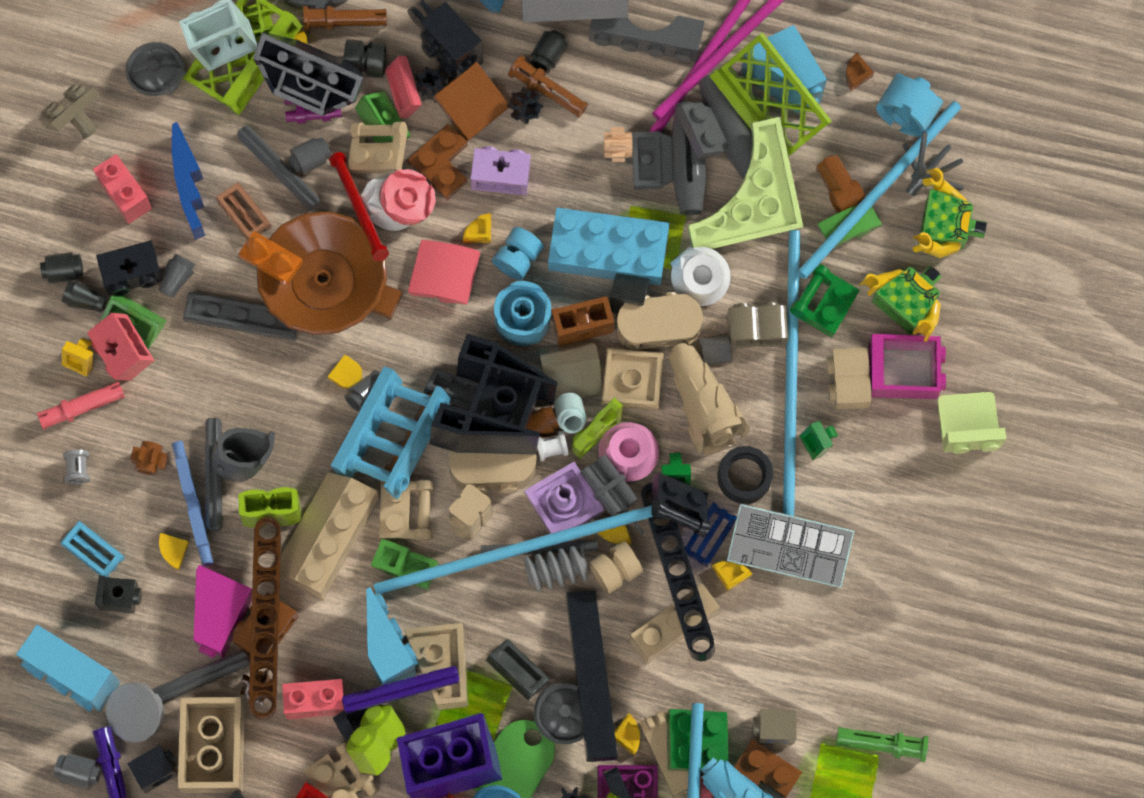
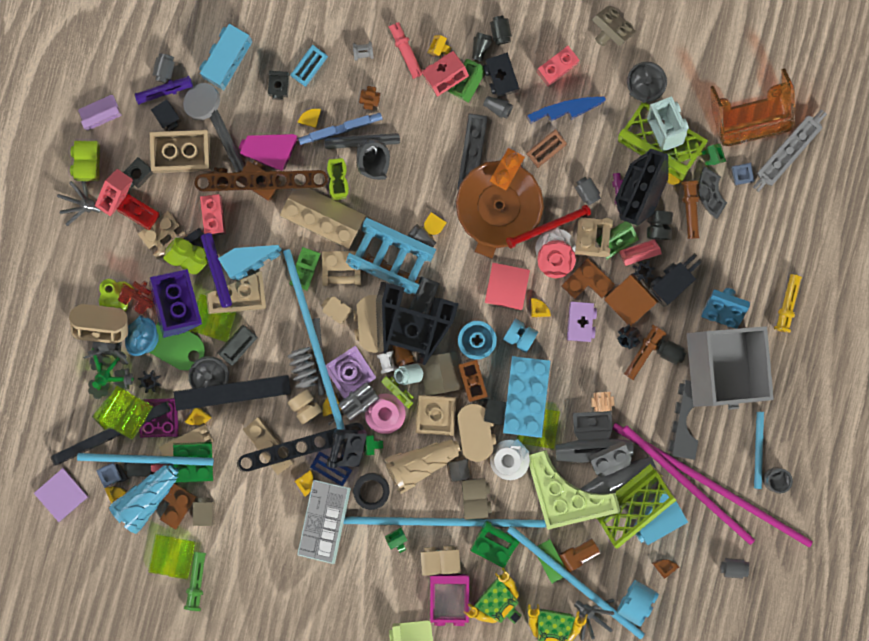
camera: 90 degrees right, 15 degrees up
(278, 167) = (579, 170): dark grey axle -> none

